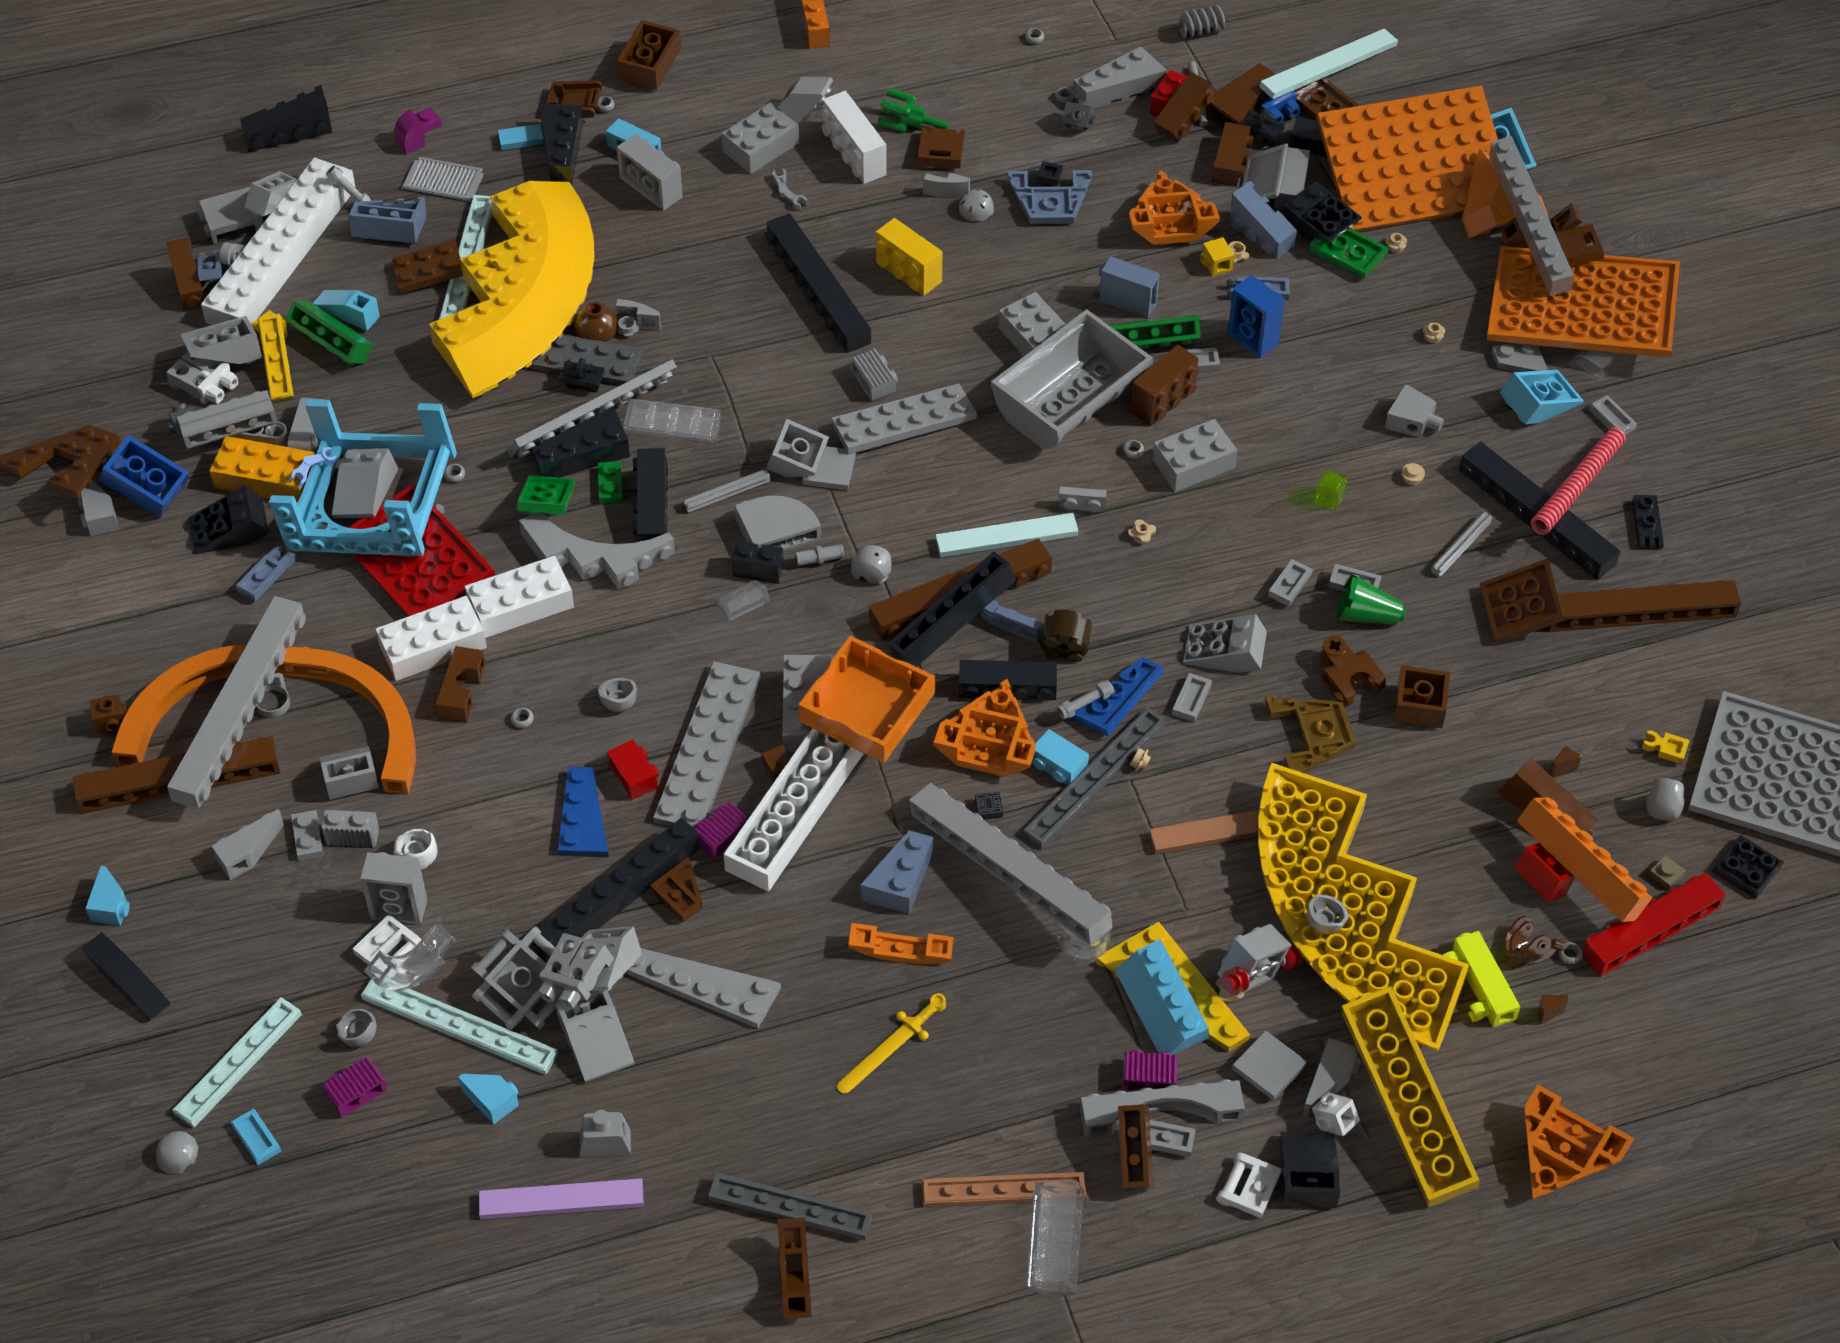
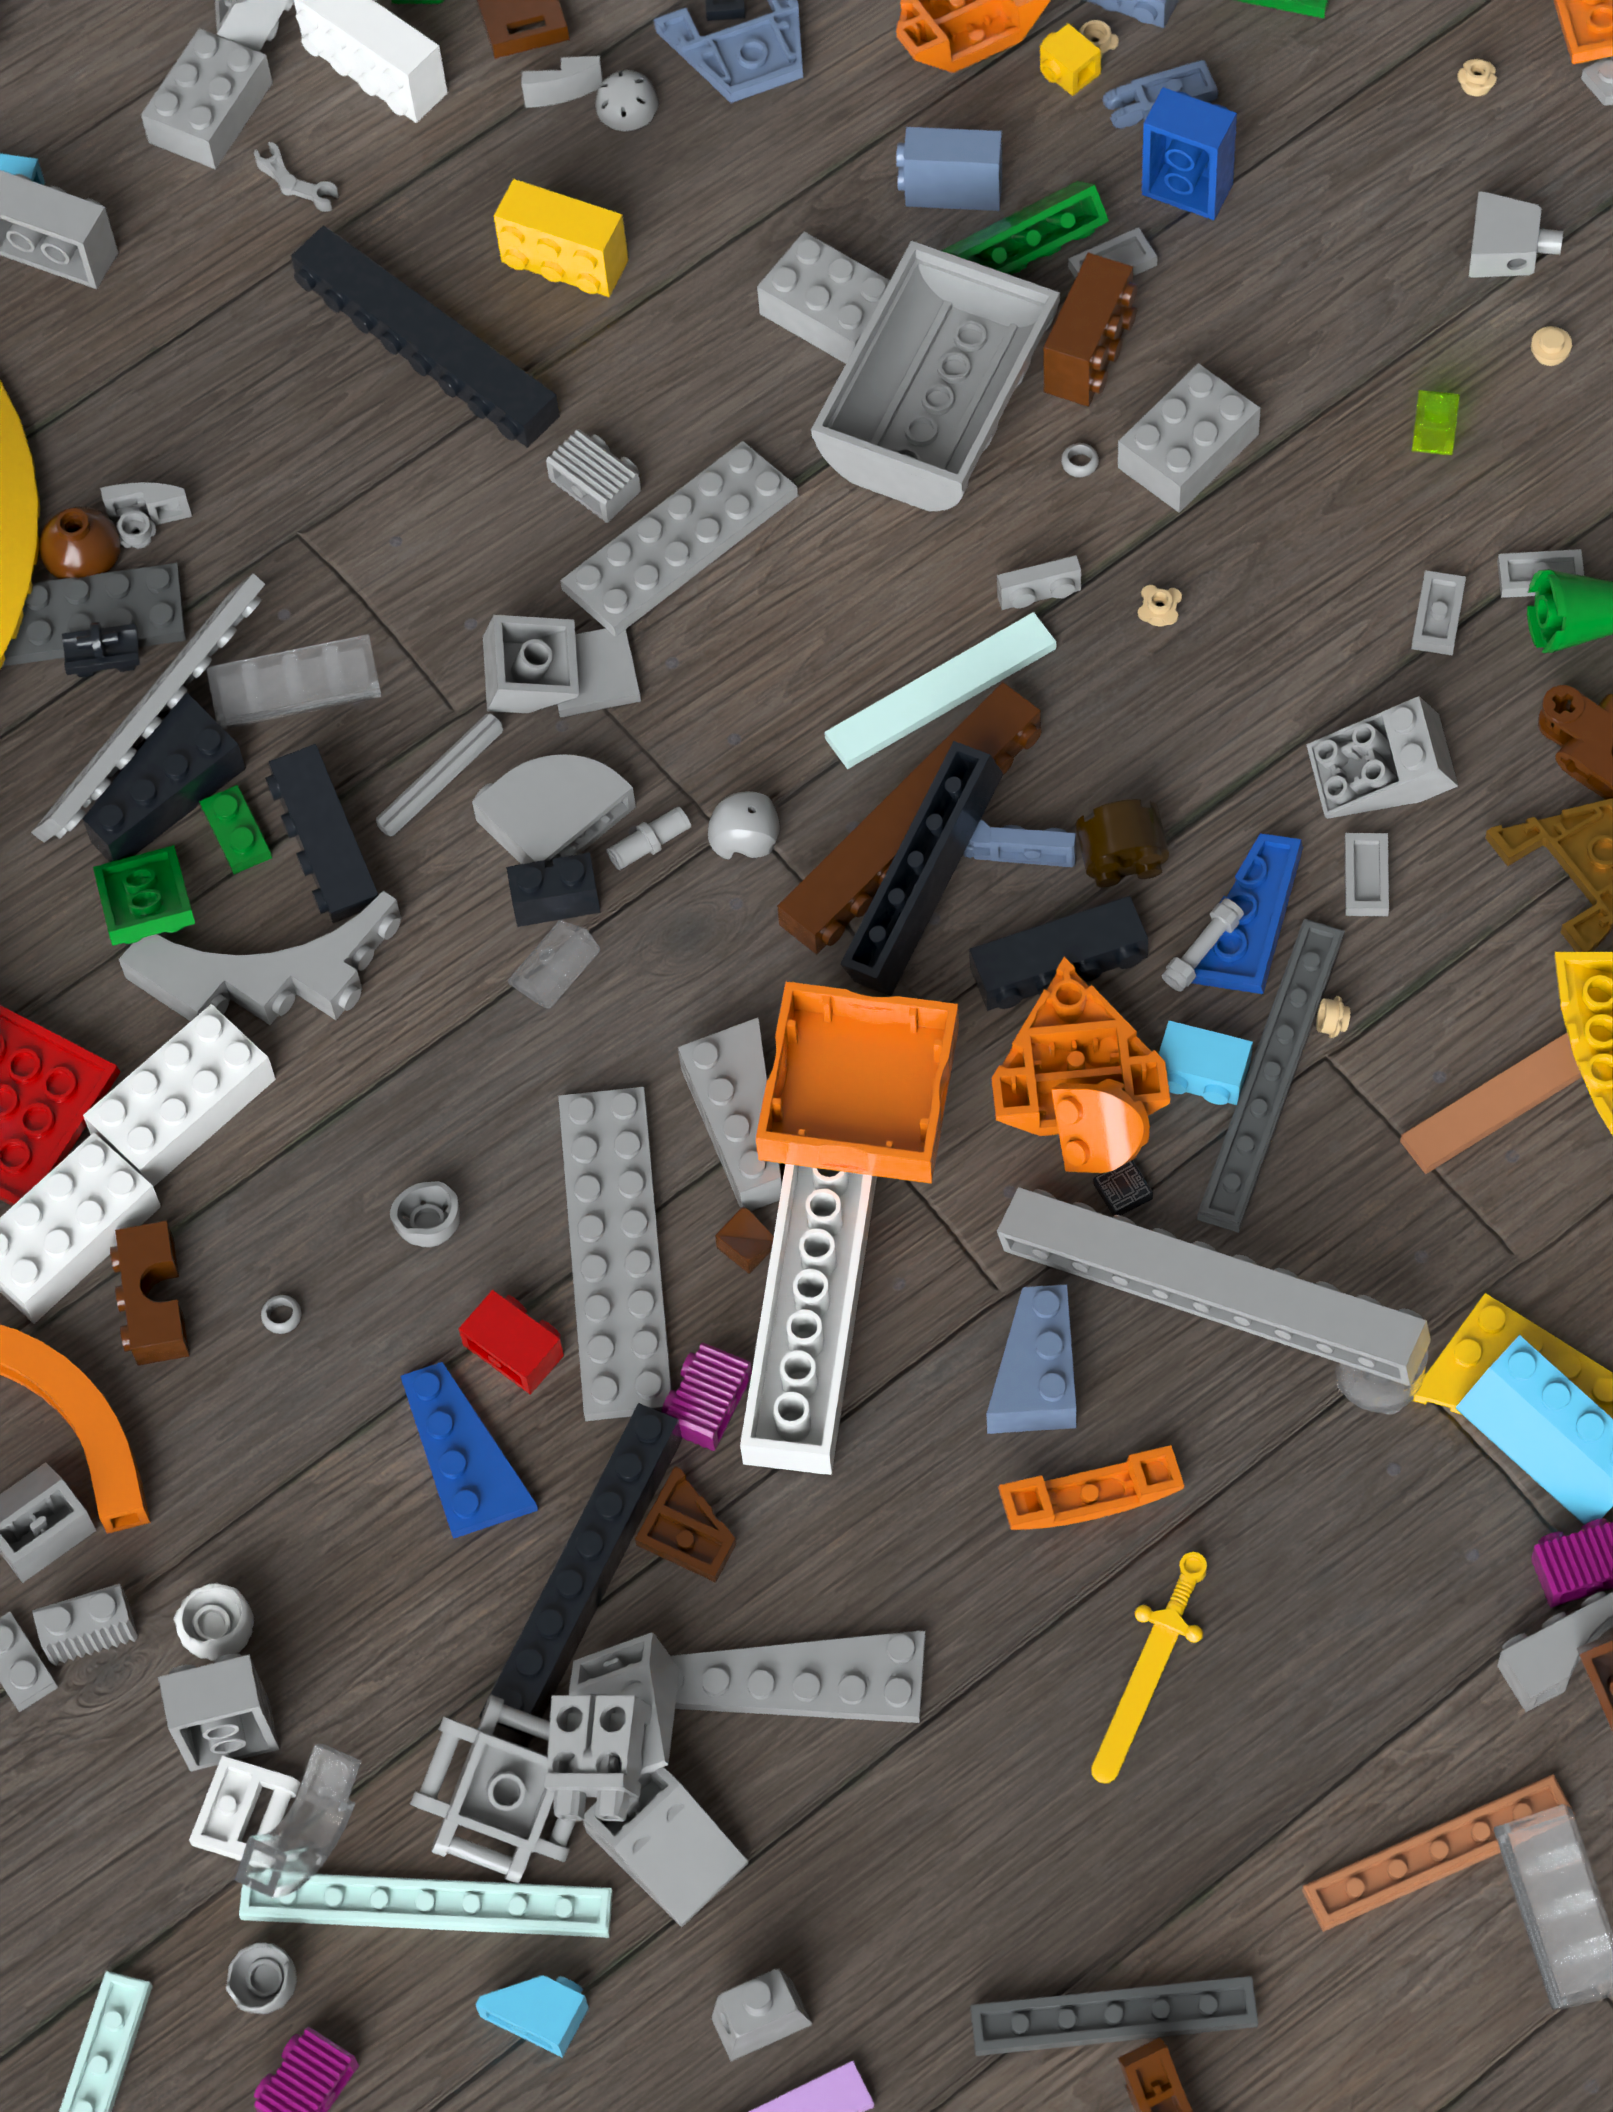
camera: 15 degrees left, 10 degrees up
(987, 766) = (1099, 1126): none -> orange slope

